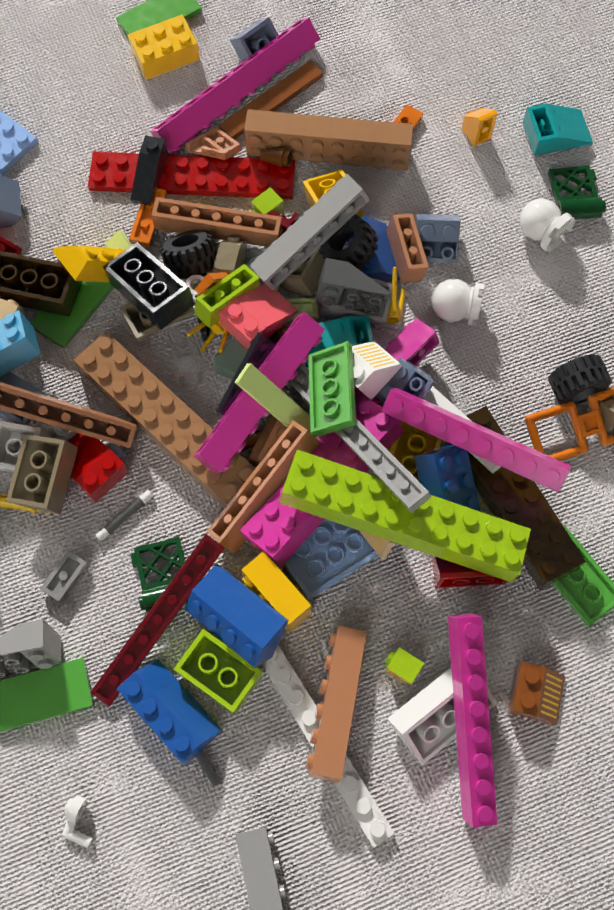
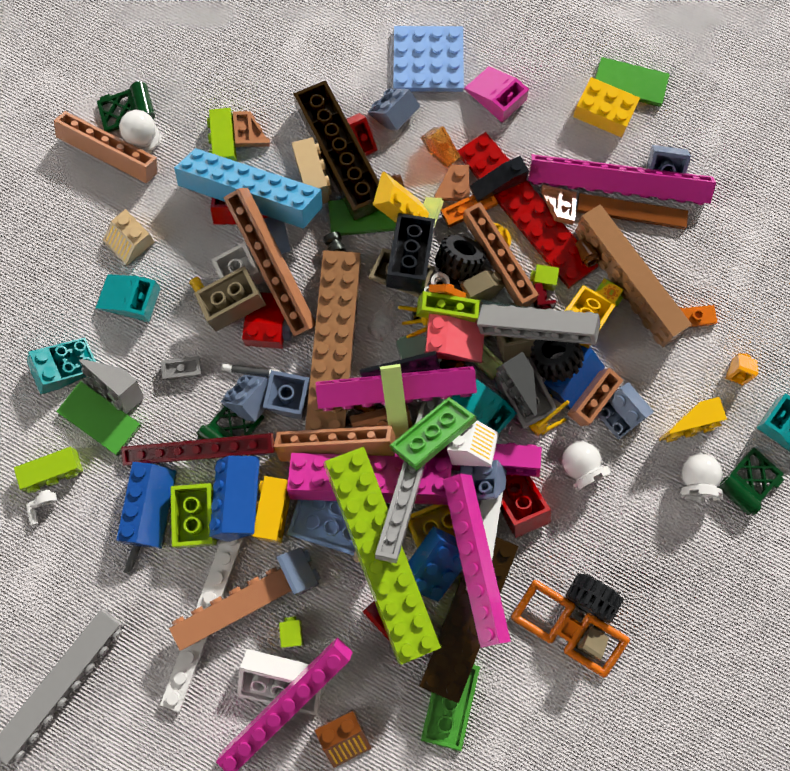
camera: 50 degrees right, 5 degrees up
(48, 785) = (48, 470): none -> lime brick
(68, 114) = (498, 92): none -> dark pink slope
(70, 194) = (440, 146): none -> clear orange slope
(71, 348) = (333, 242): none -> pearl dark grey wheel
(116, 211) = (455, 184): none -> nougat wing
(150, 532) = (247, 397): none -> sand blue slope
(179, 495) = (286, 394): none -> sand blue slope
(325, 166) = (610, 291): none -> brick
(352, 613) = (298, 571): none -> sand blue slope
(455, 376) = (523, 505): none -> red slope
(493, 186) = (702, 417): none -> yellow slope

